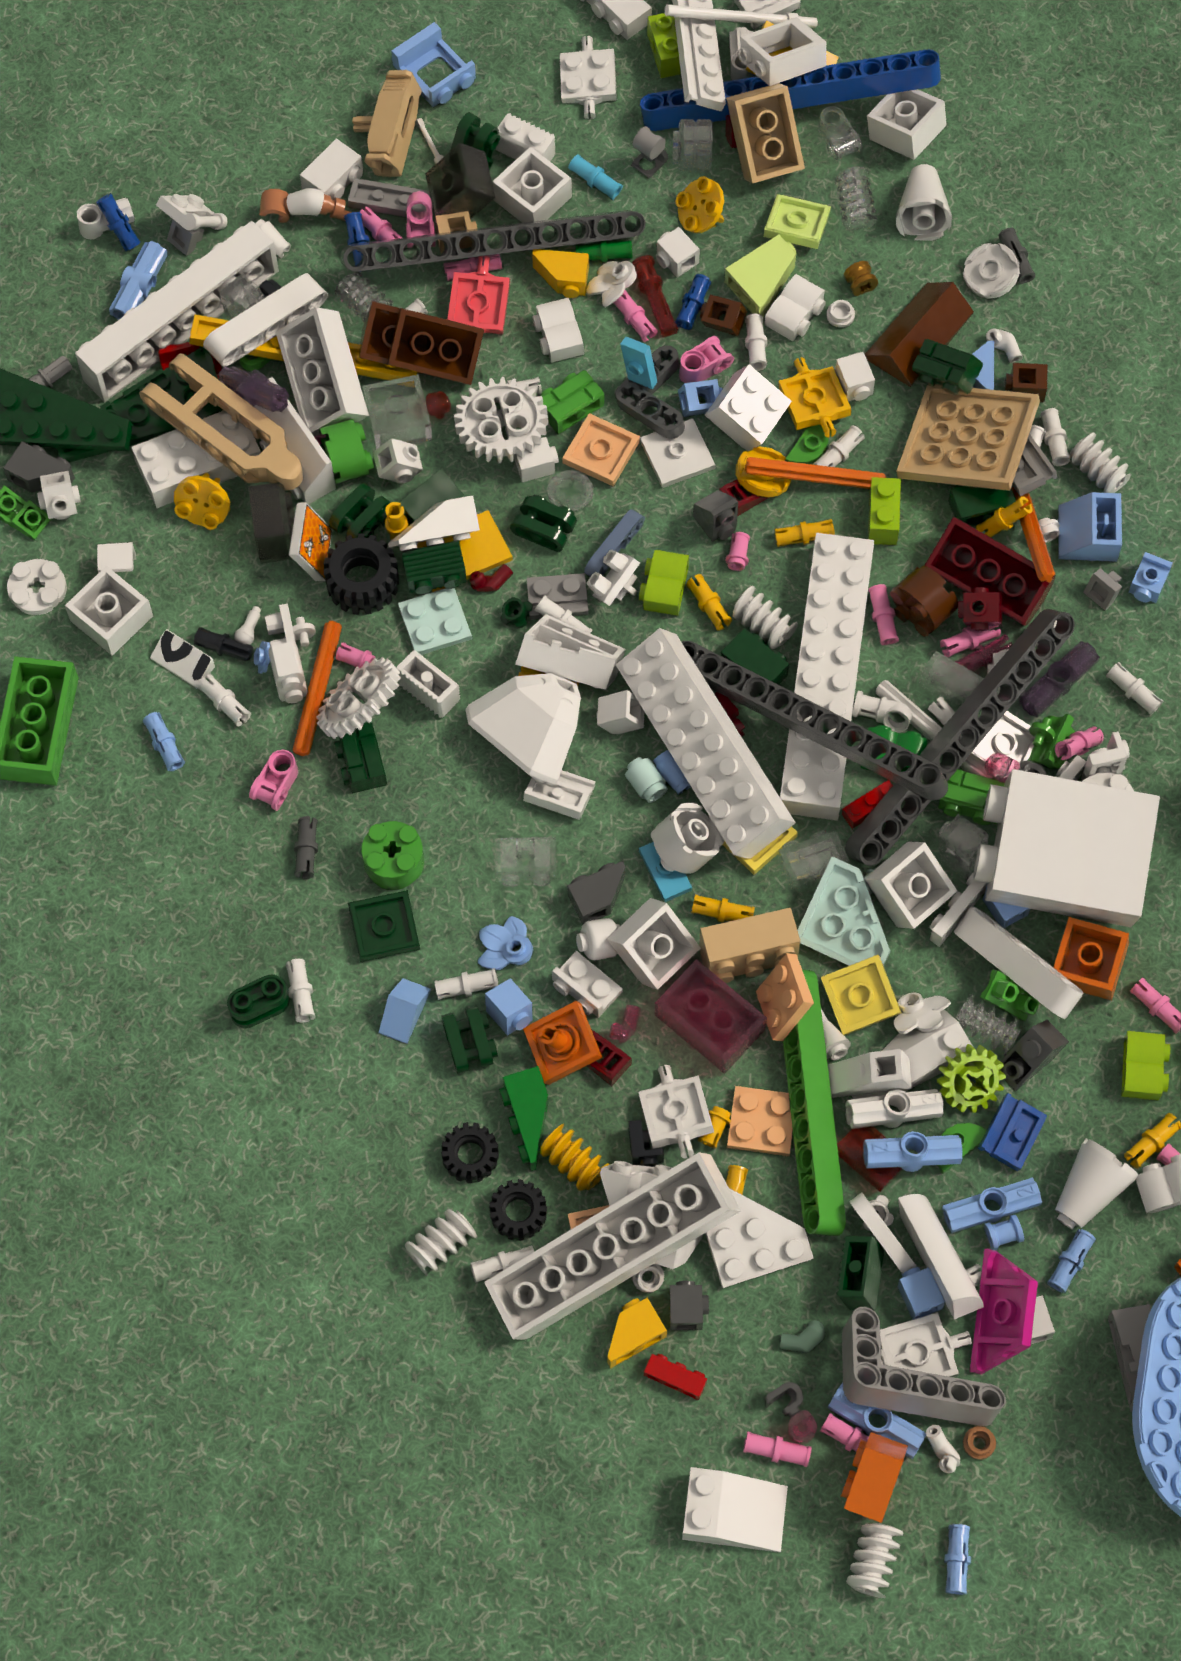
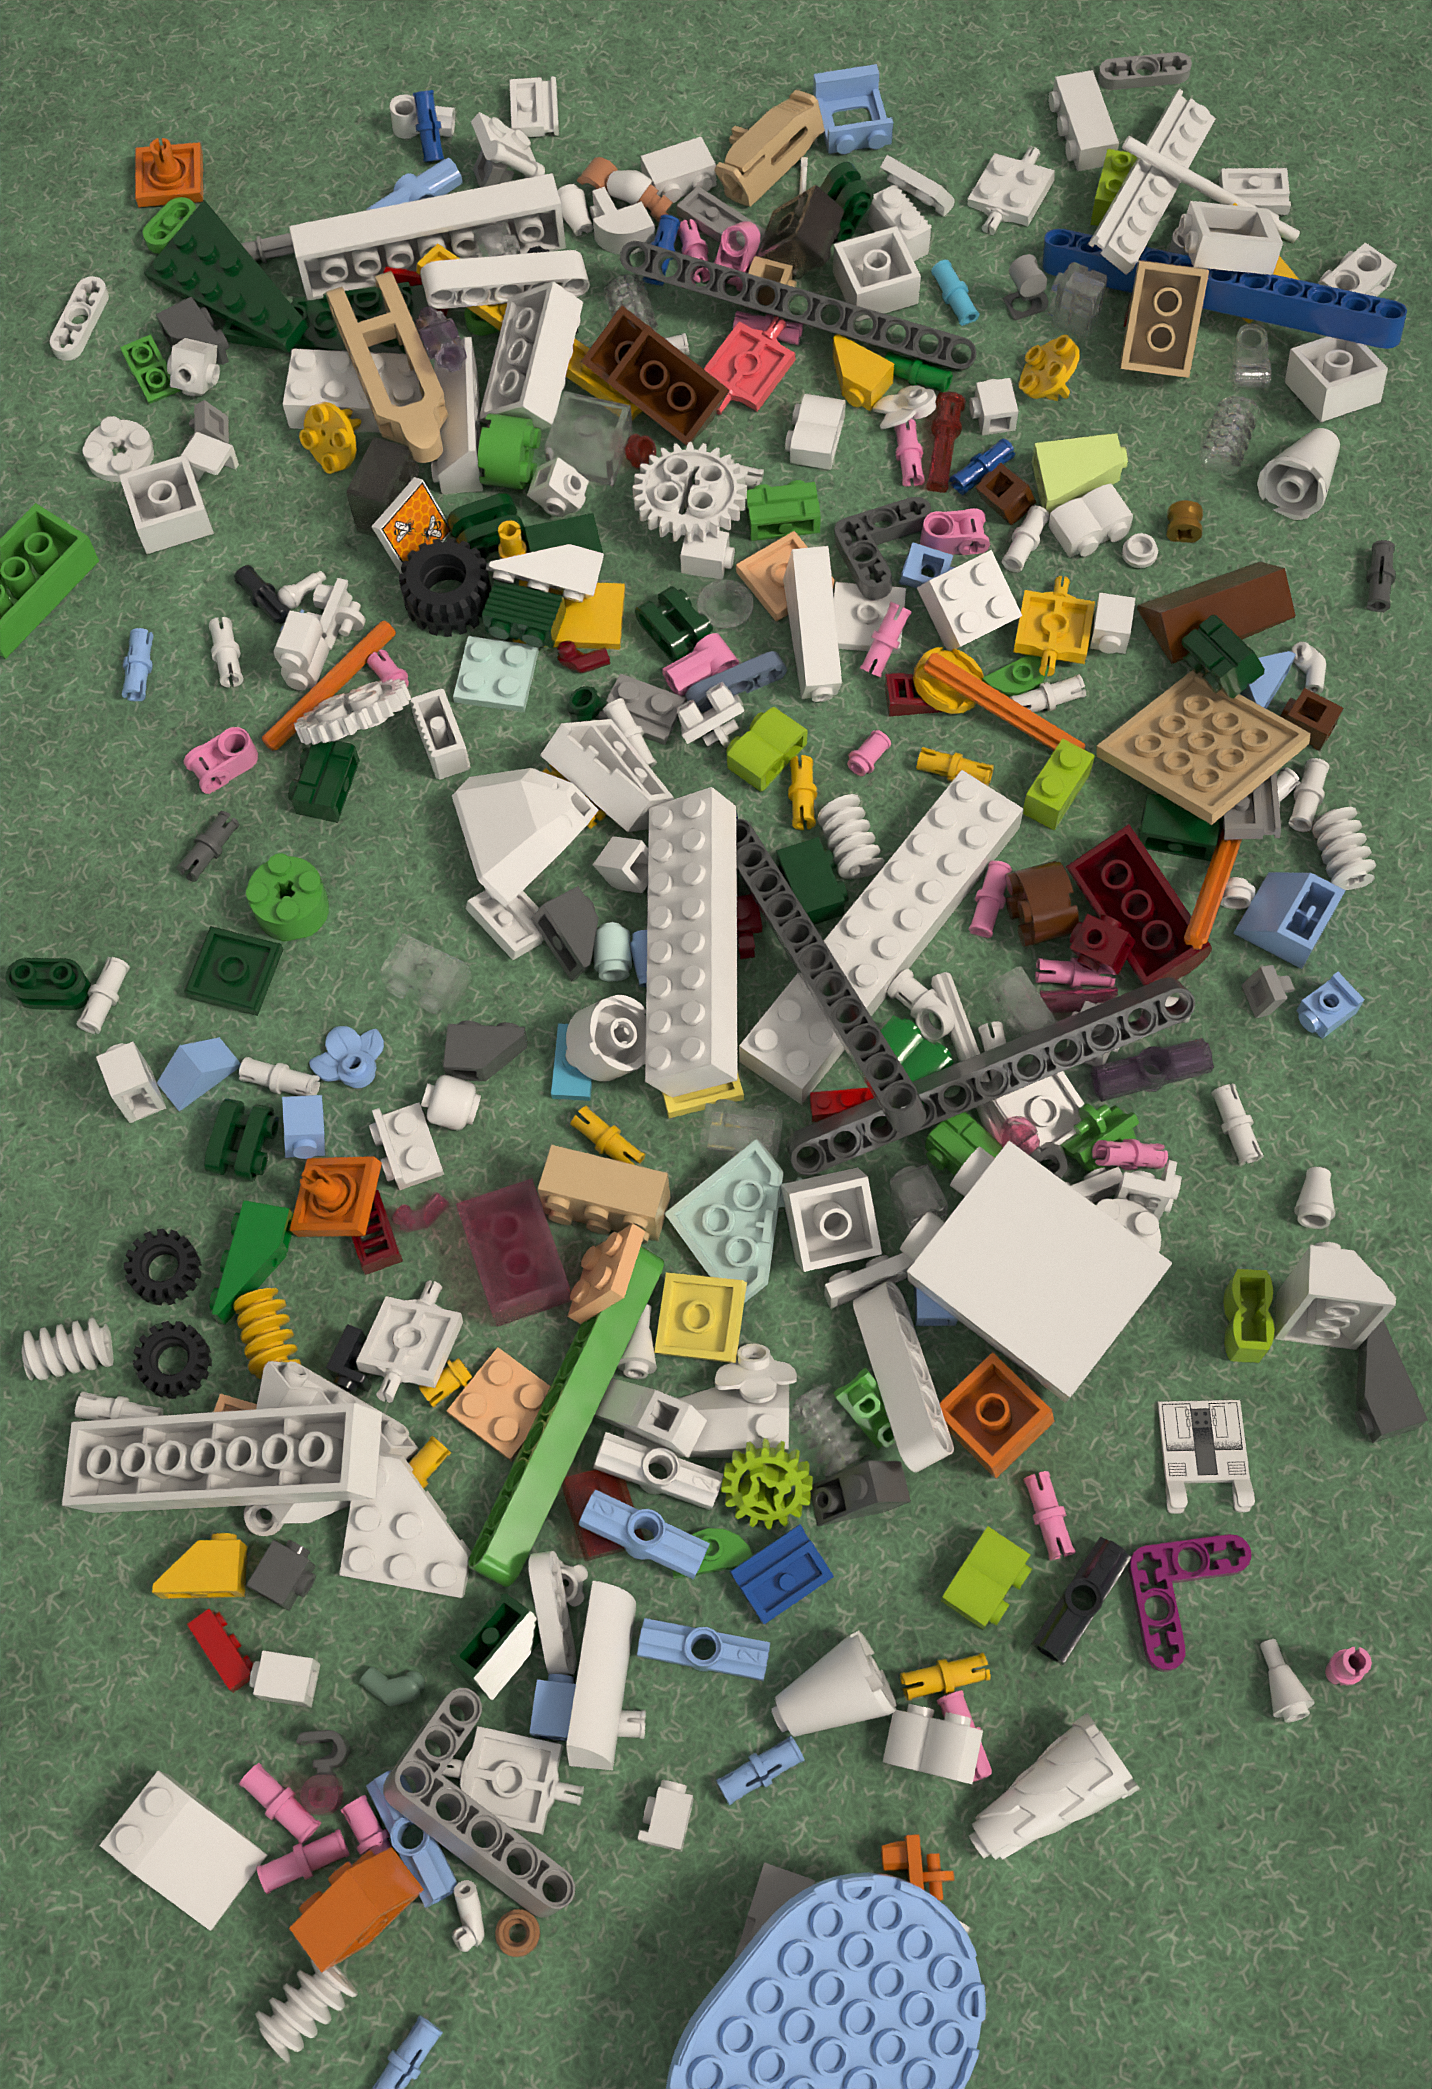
camera: 30 degrees right, 0 degrees up
(97, 532) = (210, 422): none -> light grey tile
(182, 658) = (211, 589): slope -> none
(185, 168) = (534, 106): none -> white plate
(313, 240) = (617, 227): none -> white brick
(369, 1037) = (130, 1081): none -> white brick
(529, 107) = (918, 185): none -> white plate
(583, 541) = (708, 658): none -> bright pink piece
(610, 780) = (569, 930): none -> dark grey slope
(638, 362) = (873, 496): medium azure plate -> none
(649, 476) = (813, 622): none -> white slope
(653, 943) = (499, 1136): white brick -> none
(704, 463) = (885, 639): none -> bright pink pin
(717, 515) = (865, 702): dark grey slope -> none
(732, 1369) = (285, 1678): none -> white brick
(797, 221) = (1149, 432): yellowish green plate -> none
(815, 1475) = (302, 1861): none -> bright pink pin
(879, 35) = (1361, 272): none -> white brick
(991, 270) = (1340, 579): white tile -> none
(1004, 1232) = (699, 1690): light blue bush -> none
(1005, 517) = (1192, 855): yellow pin -> none
(1007, 1317) = (635, 1792): dark pink wing -> none

